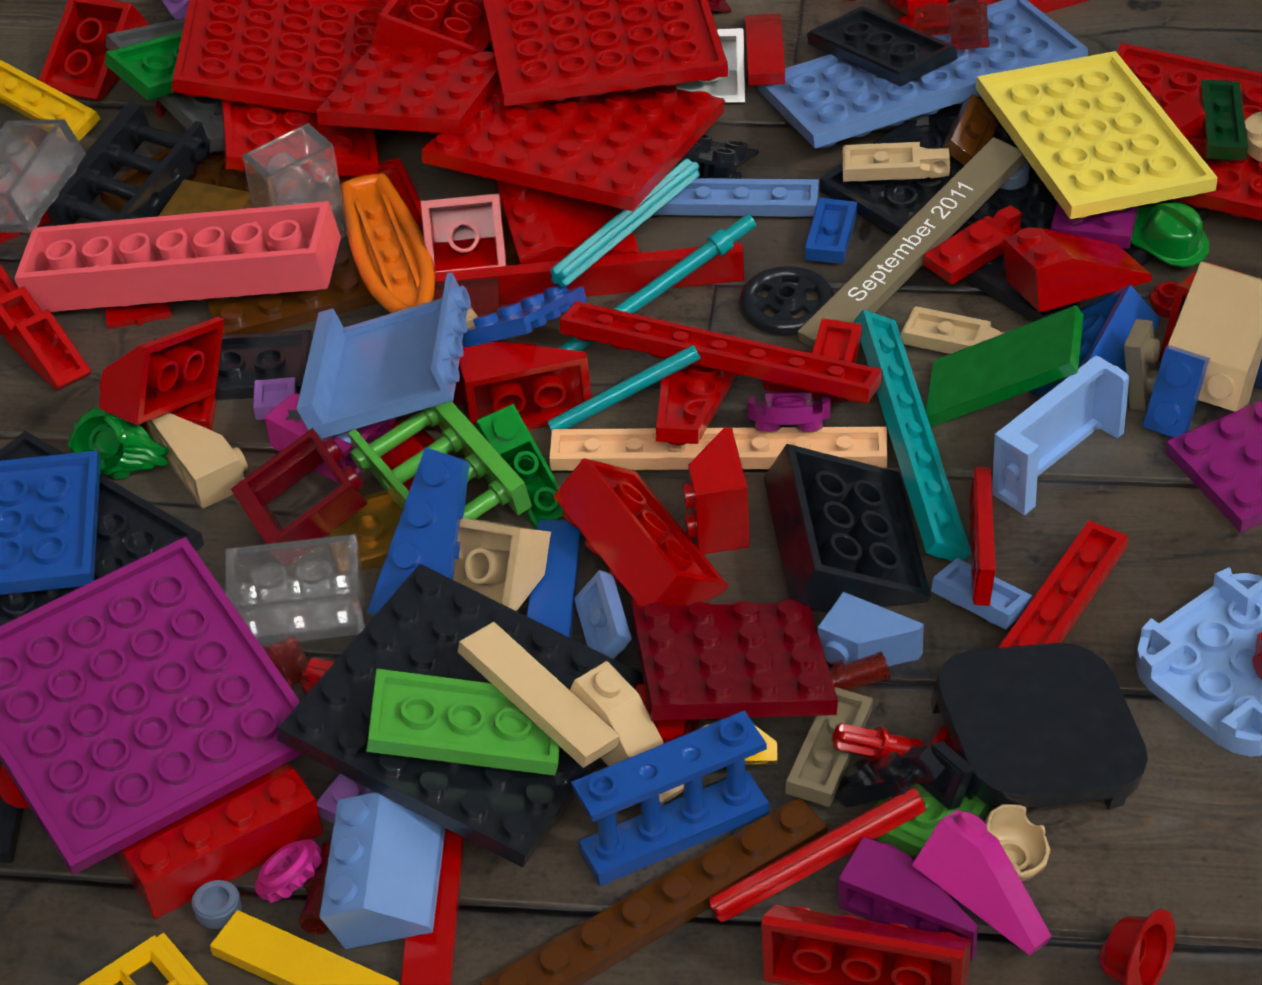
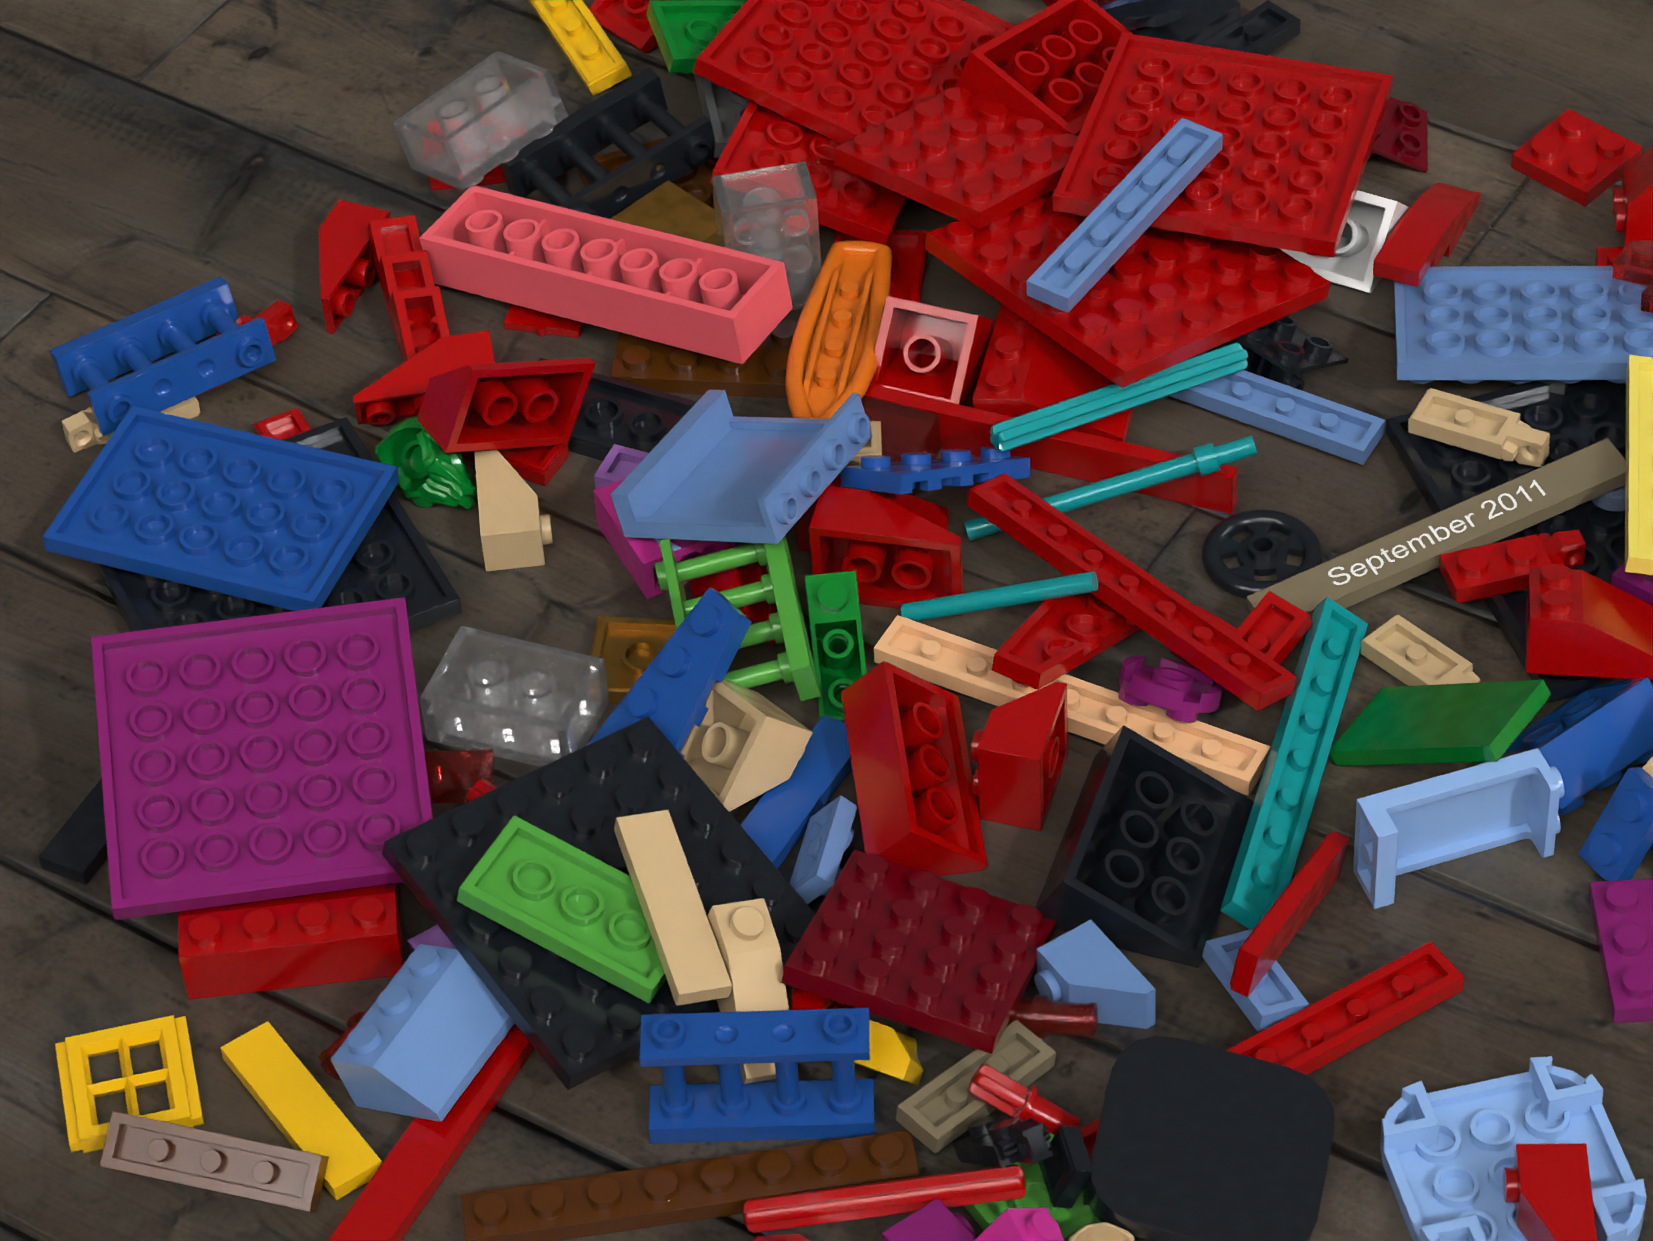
camera: 25 degrees right, 0 degrees up
(76, 382) = (403, 389): none -> red slope
(215, 903) = (253, 1005): sand blue tile -> none
(286, 470) = (571, 561): dark red window -> none
(288, 870) = (337, 999): dark pink gear -> none
(569, 90) = (1124, 215): none -> medium blue plate
(831, 231) = (1363, 488): blue plate -> none
(882, 46) = (1561, 276): black tile -> none
(970, 130) = (1592, 419): reddish brown plate -> none
(1140, 359) = (1602, 767): dark tan plate -> none

